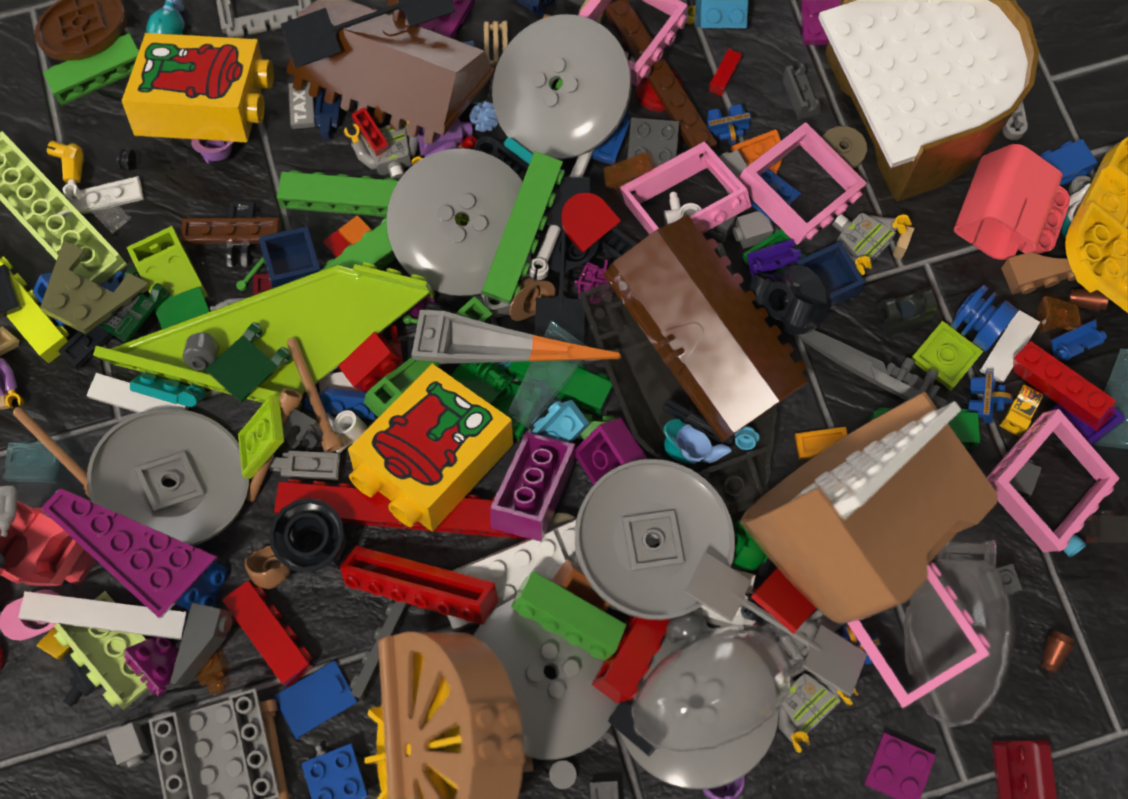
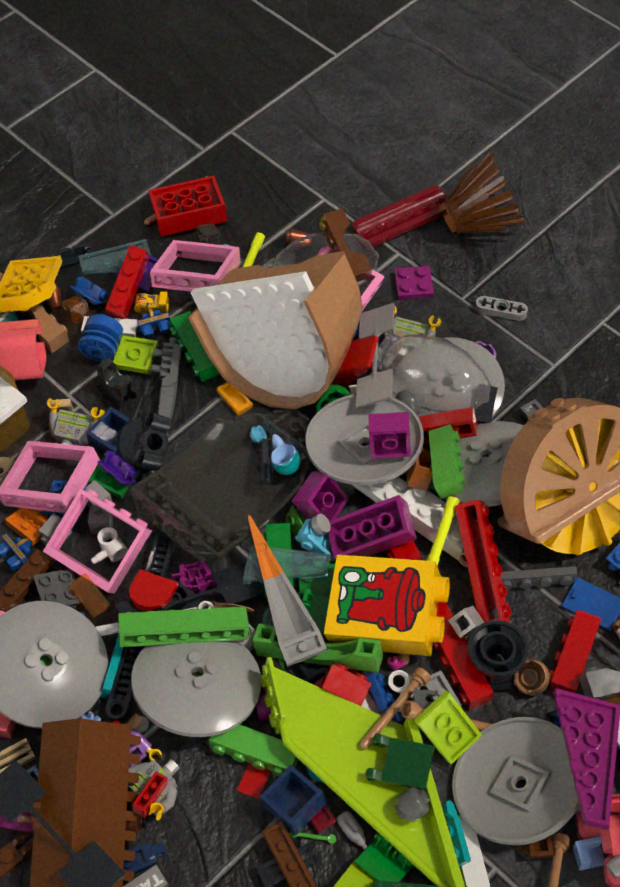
camera: 120 degrees left, 15 degrees down
(335, 193) = (210, 795): bright green brick -> none
(354, 230) = (238, 773): orange tile -> none
(363, 527) = (466, 621): none -> light grey brick
(457, 534) = (448, 514): none -> neon yellow piece
(570, 432) = (320, 524): none -> light grey tile
(623, 550) = (389, 435): none -> magenta brick
(705, 326) = (201, 469): reddish brown piece -> none
(928, 664) = (334, 226): none -> reddish brown arch
(1066, 588) = (255, 247): none -> neon yellow piece

